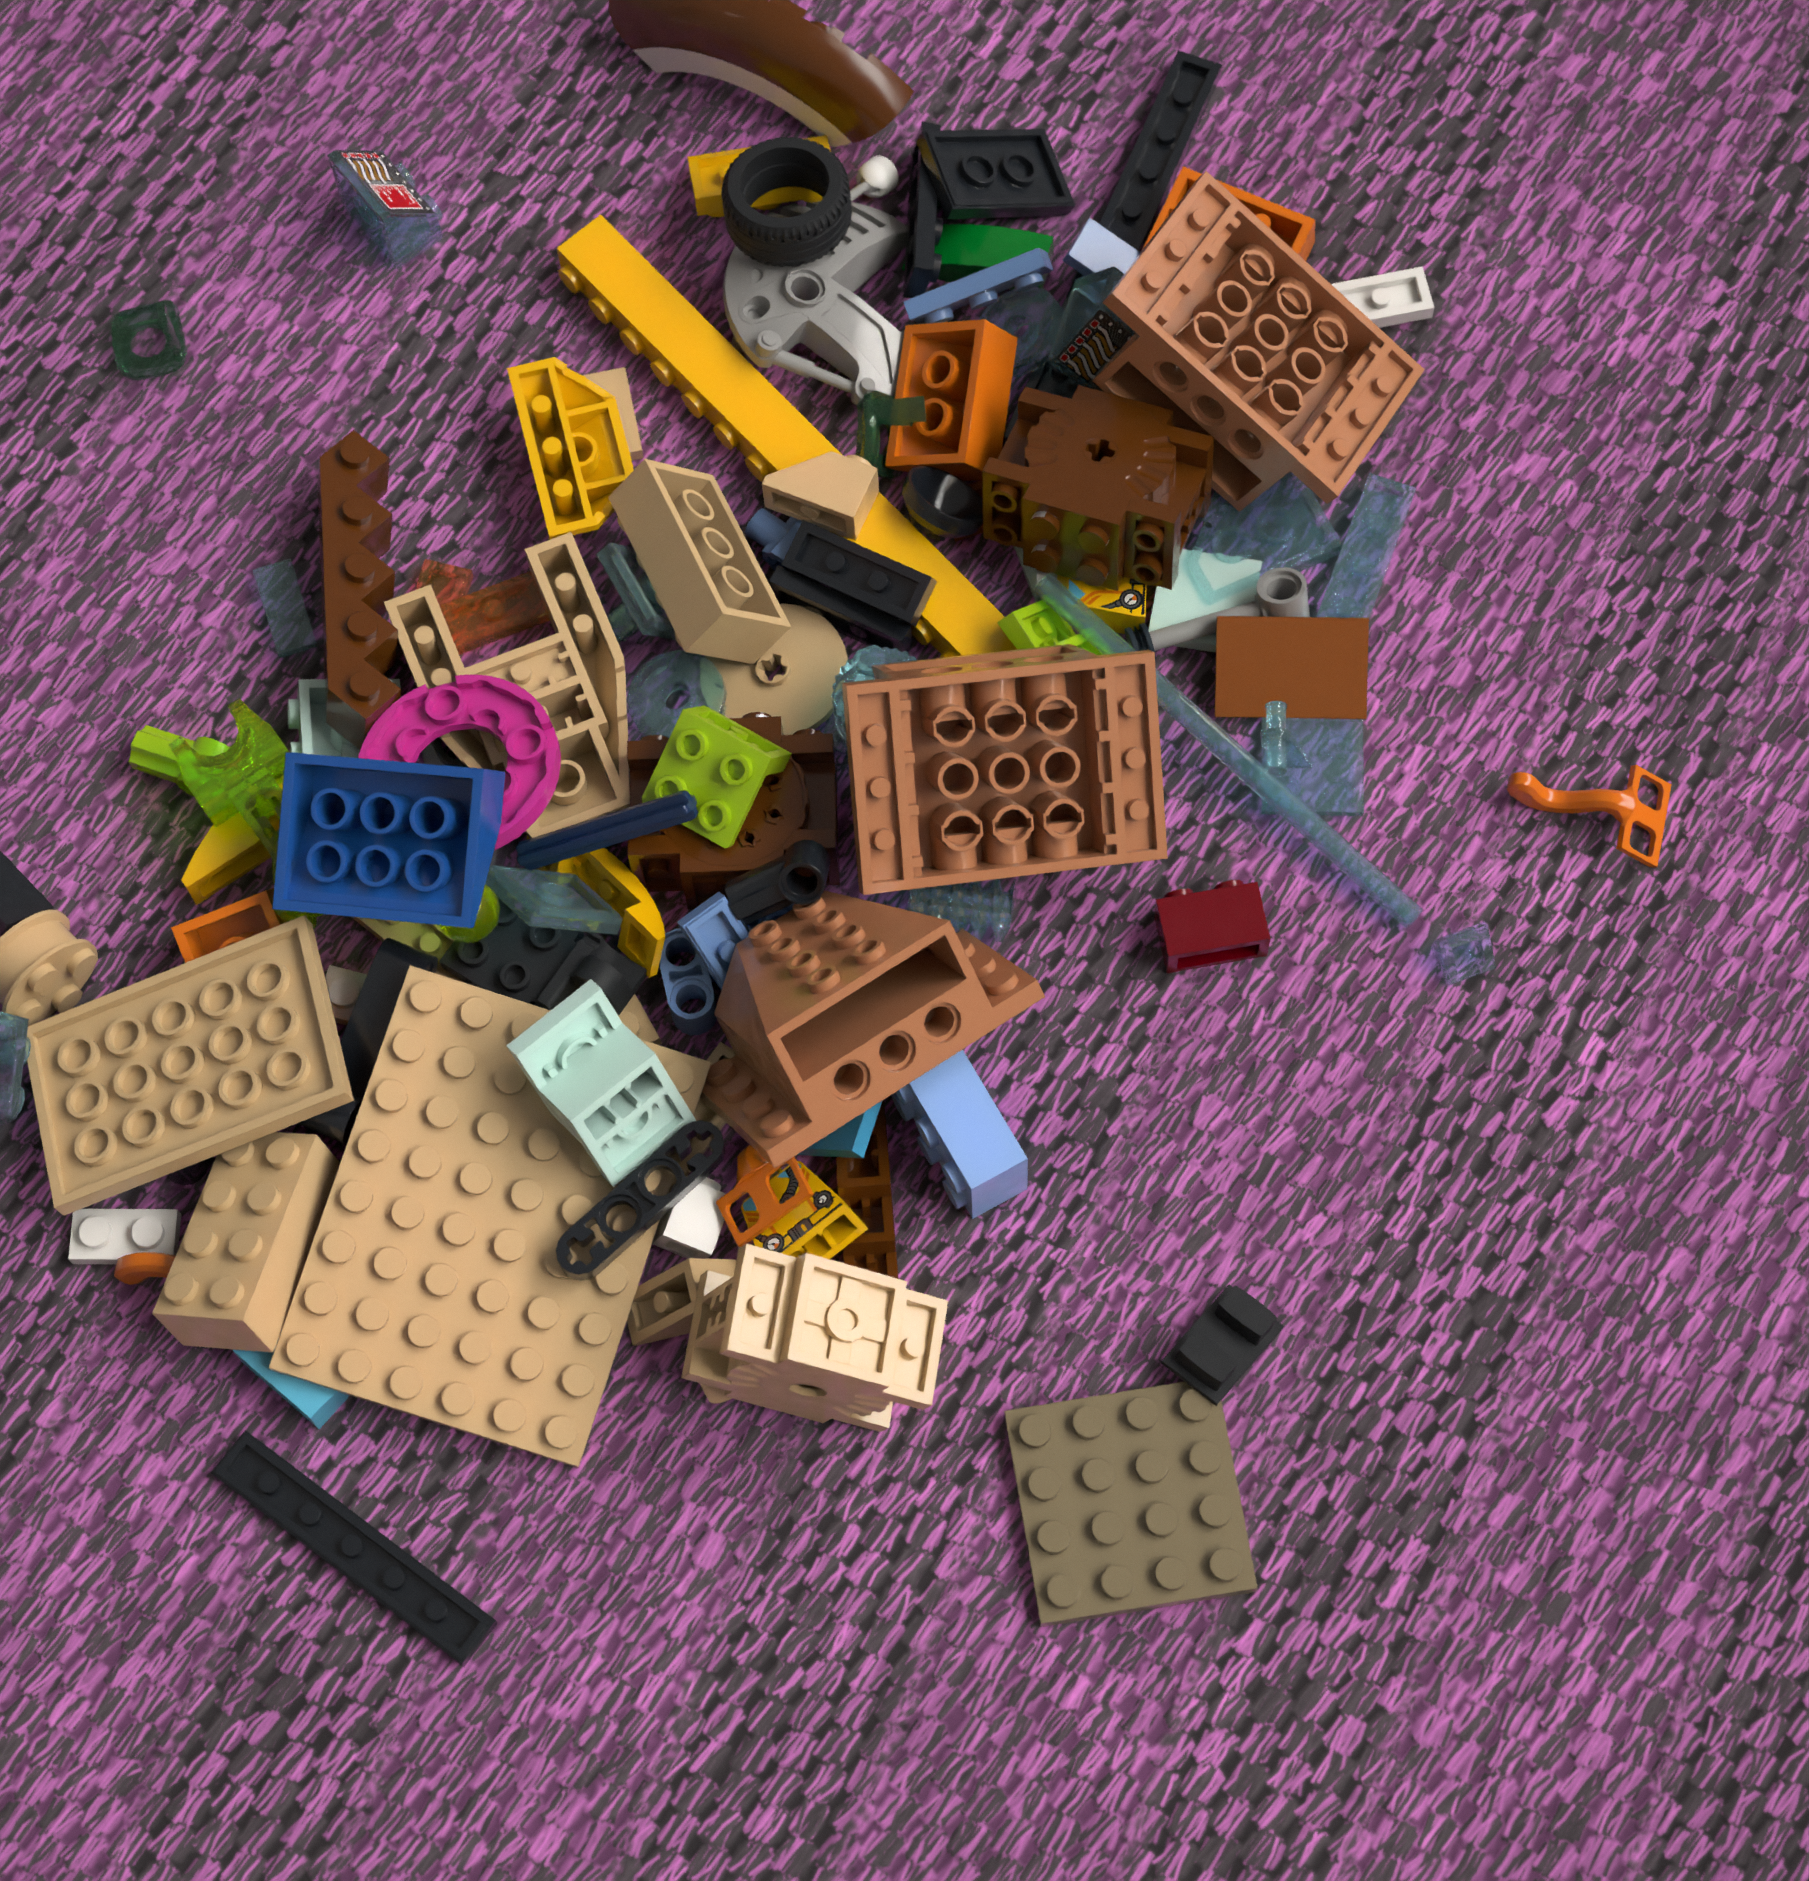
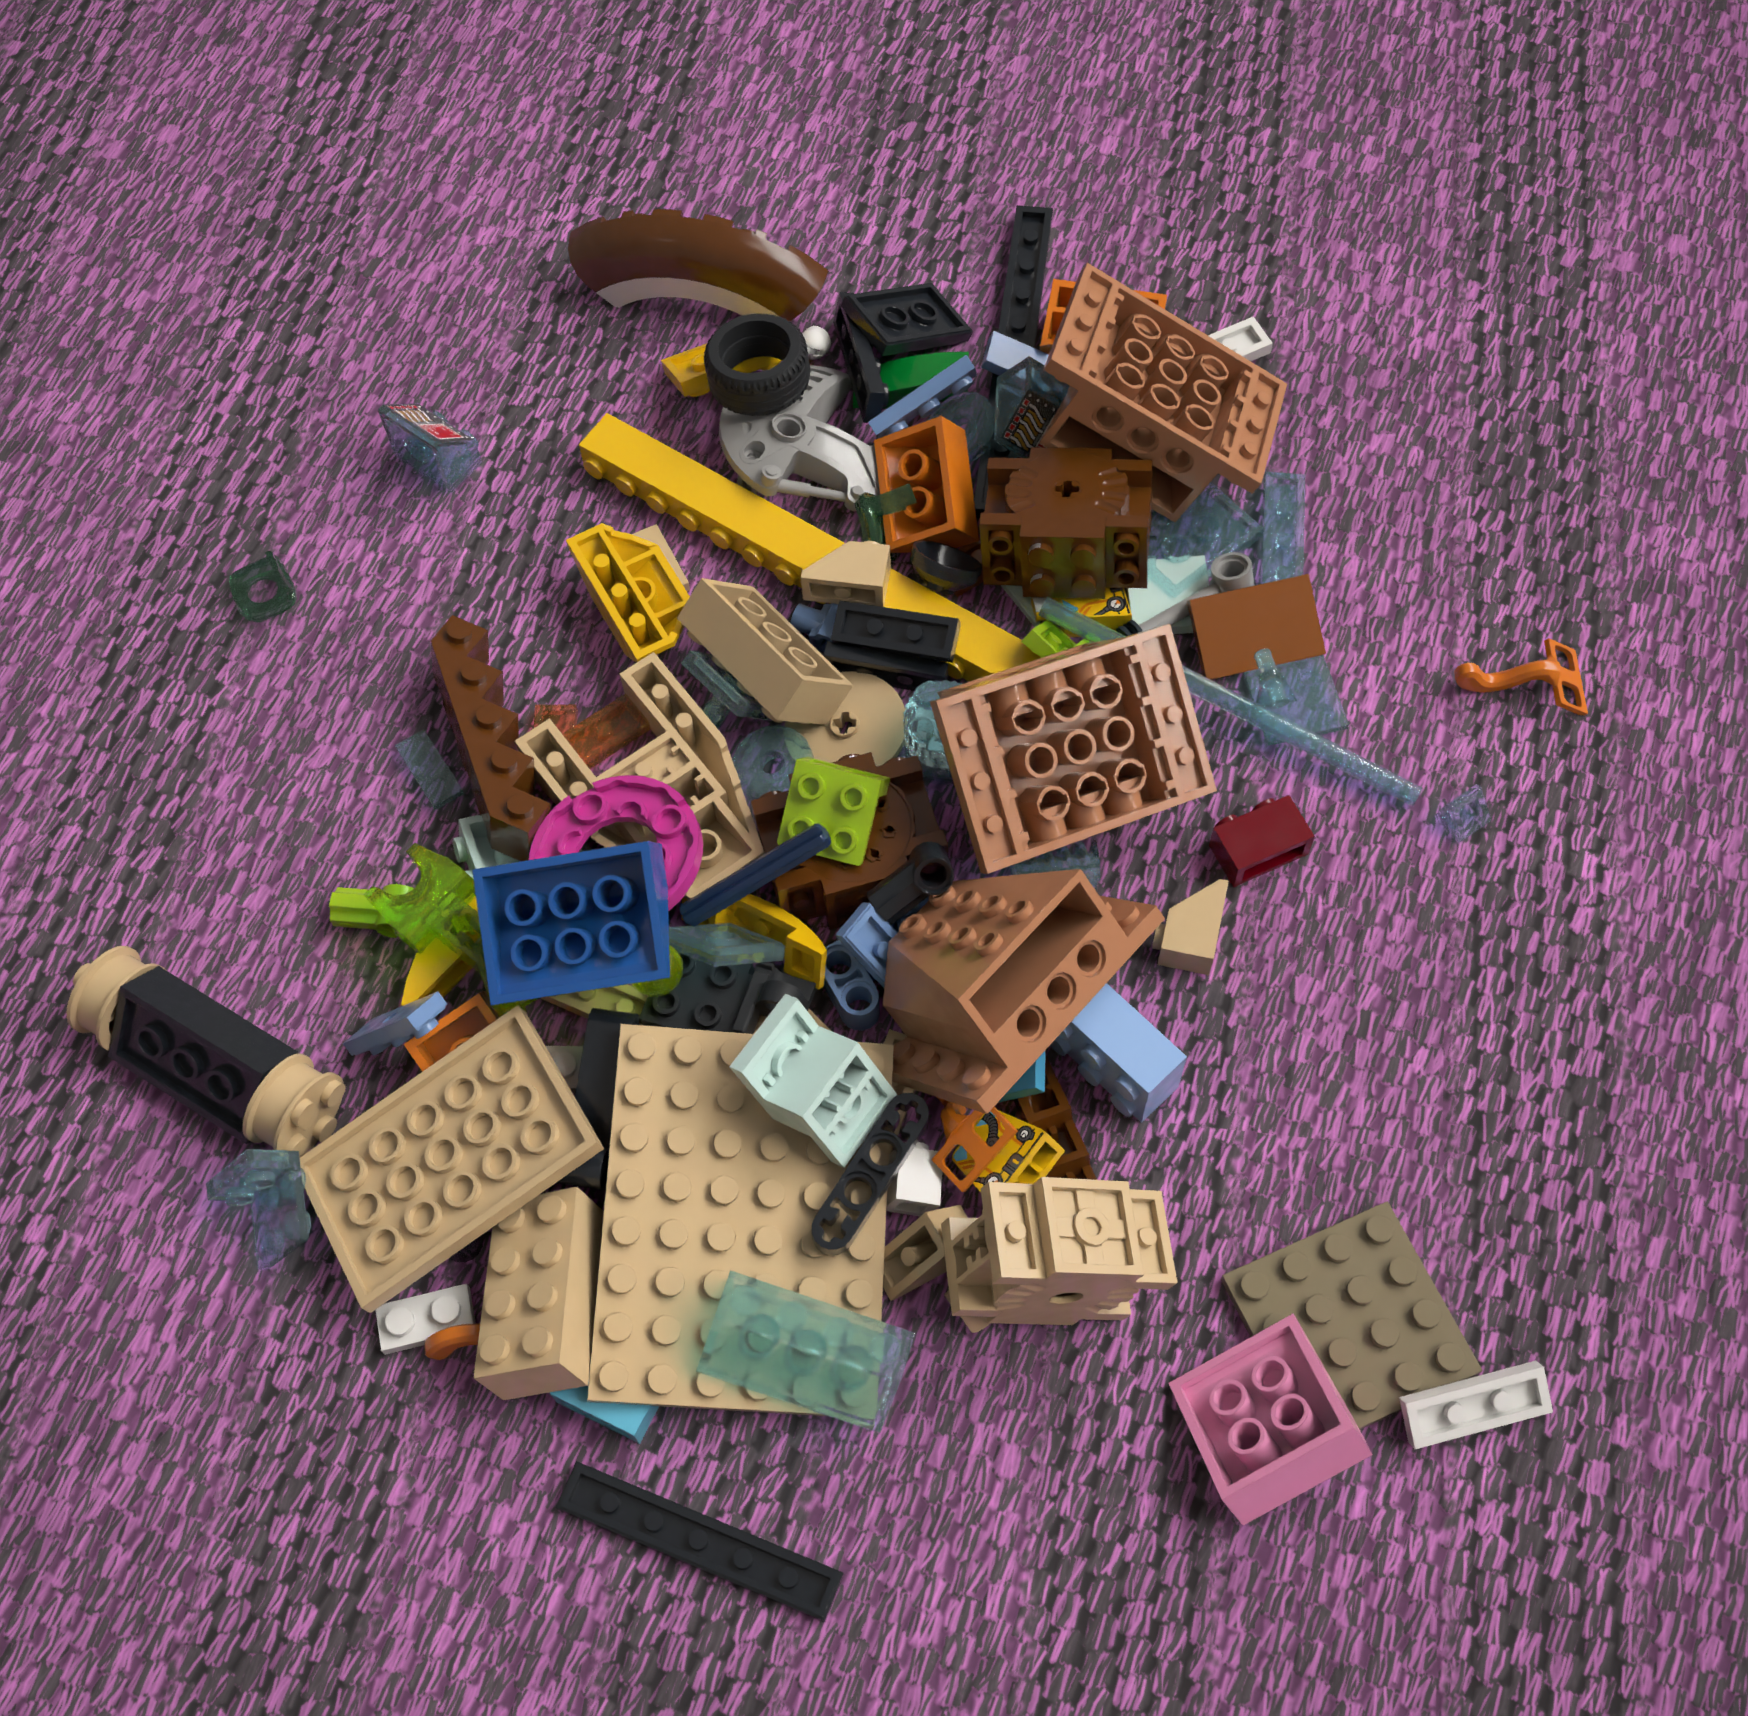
camera: 15 degrees left, 5 degrees down
(169, 904) = (397, 1026): none -> medium blue tile
(513, 1376) = (805, 1352): none -> clear light blue slope
(998, 1579) = (1268, 1420): none -> bright pink slope
(1098, 1012) = (1192, 930): none -> tan slope
(1223, 1343) = (1384, 1172): black piece -> none
(1236, 1622) = (1476, 1404): none -> white plate

